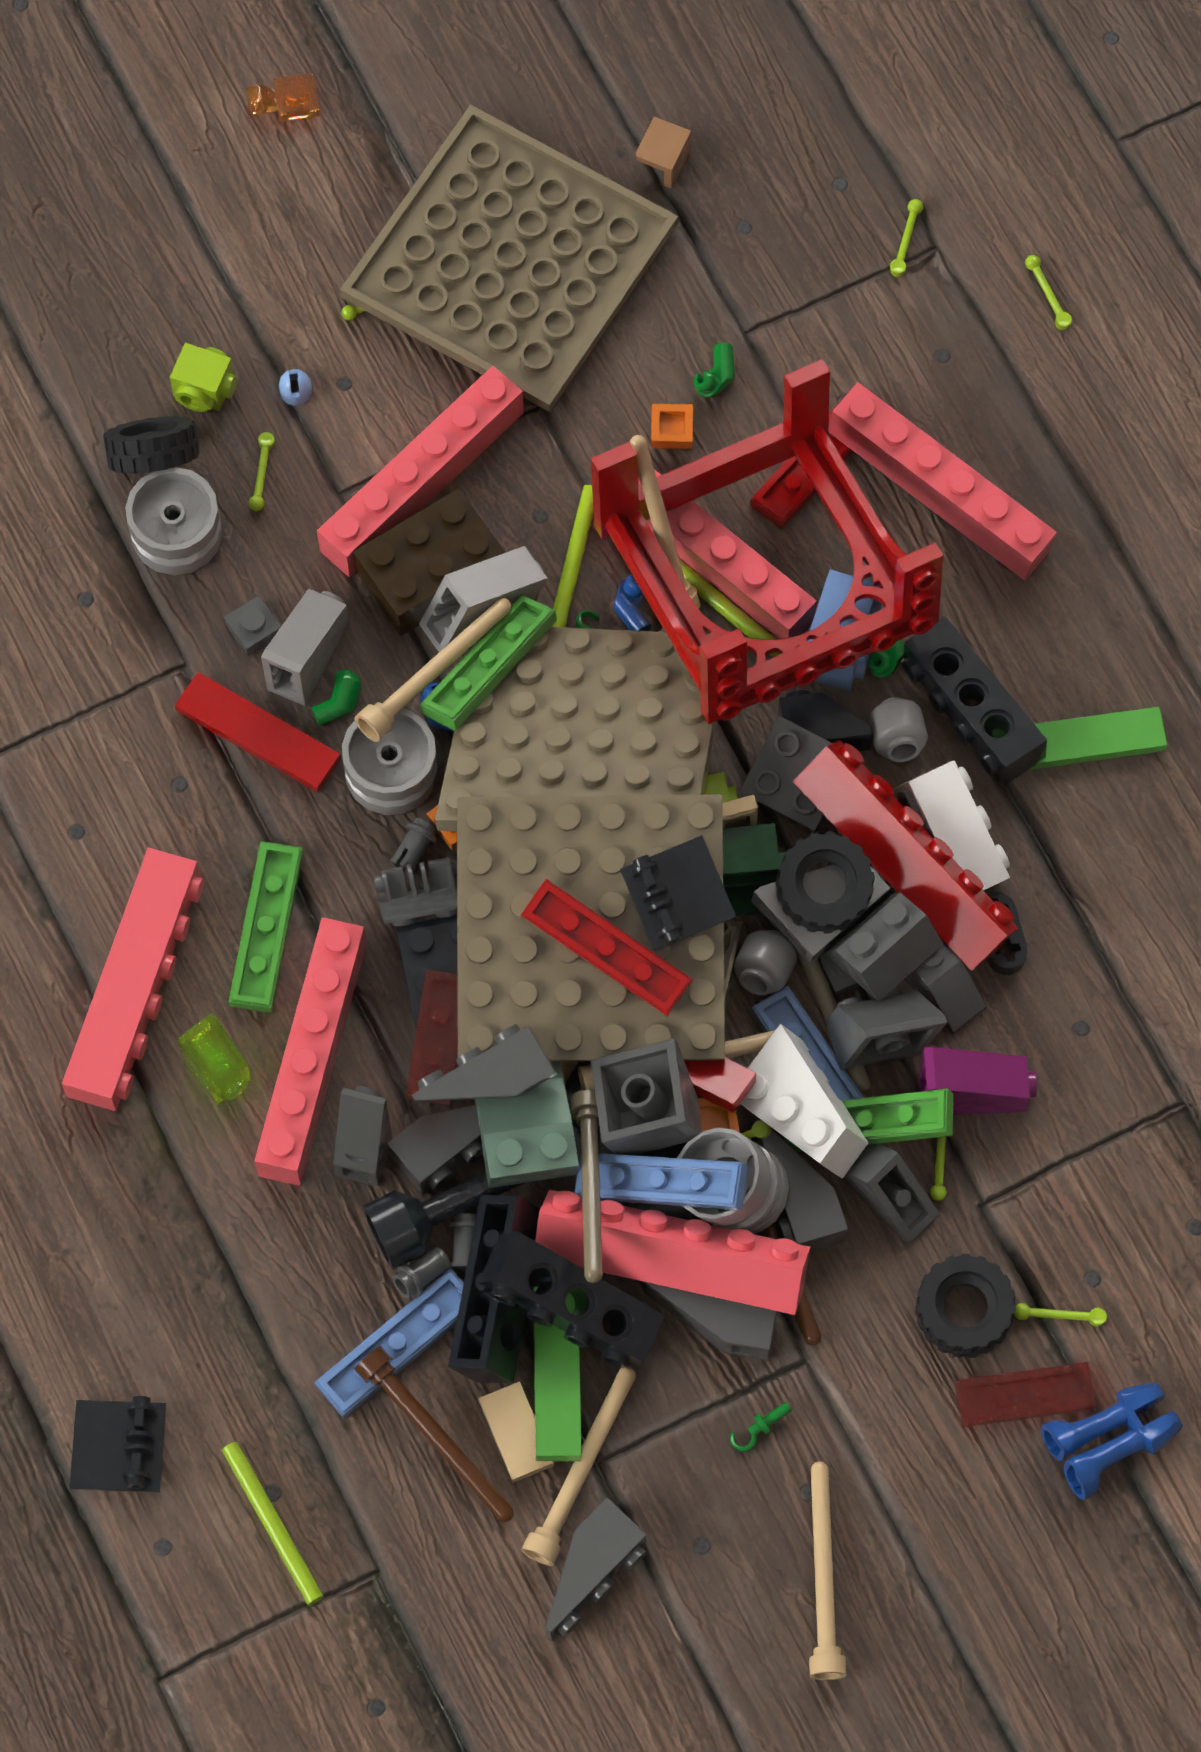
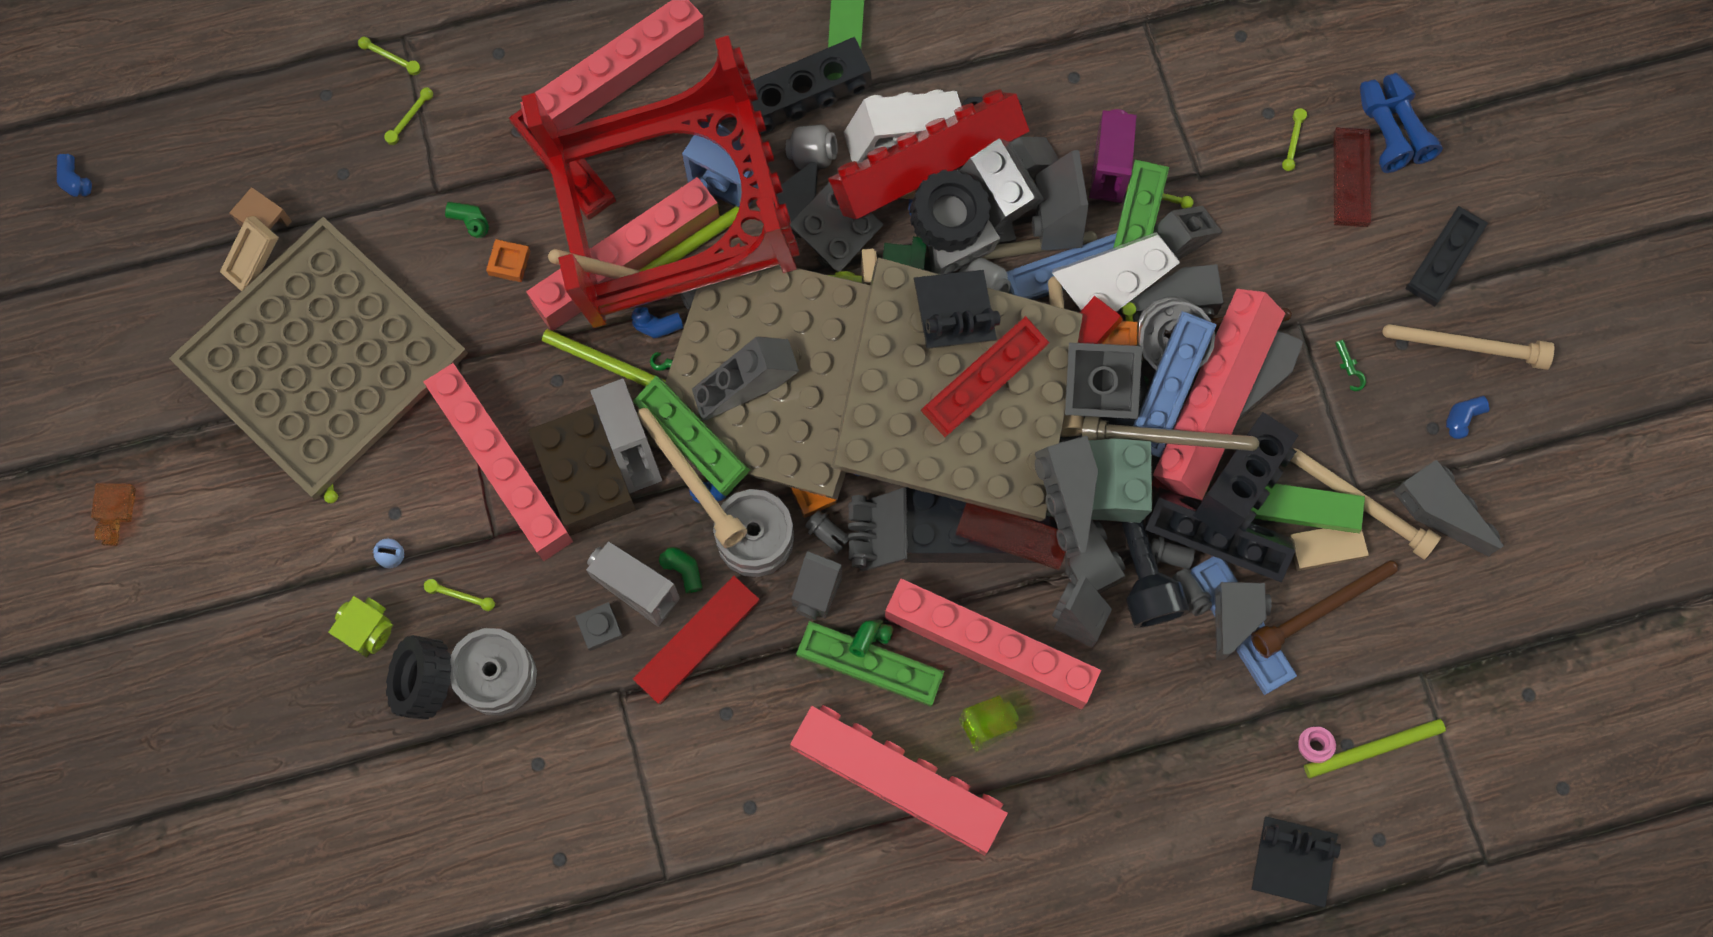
camera: 80 degrees left, 5 degrees up
(267, 1439) = (1320, 735): none -> bright pink plate
(301, 916) = (868, 633): none -> green arm
(340, 842) = (816, 586): none -> dark grey slope
(398, 1323) = (1238, 613): none -> dark grey slope
(562, 696) = (746, 375): none -> dark grey slope
(612, 150) = (249, 253): none -> tan tile
(725, 1573) = (1461, 414): none -> blue arm
(803, 267) = (392, 135): none -> lime hinge
(941, 1530) = (1446, 256): none -> black tile
(976, 1273) = (1286, 175): black tyre -> none

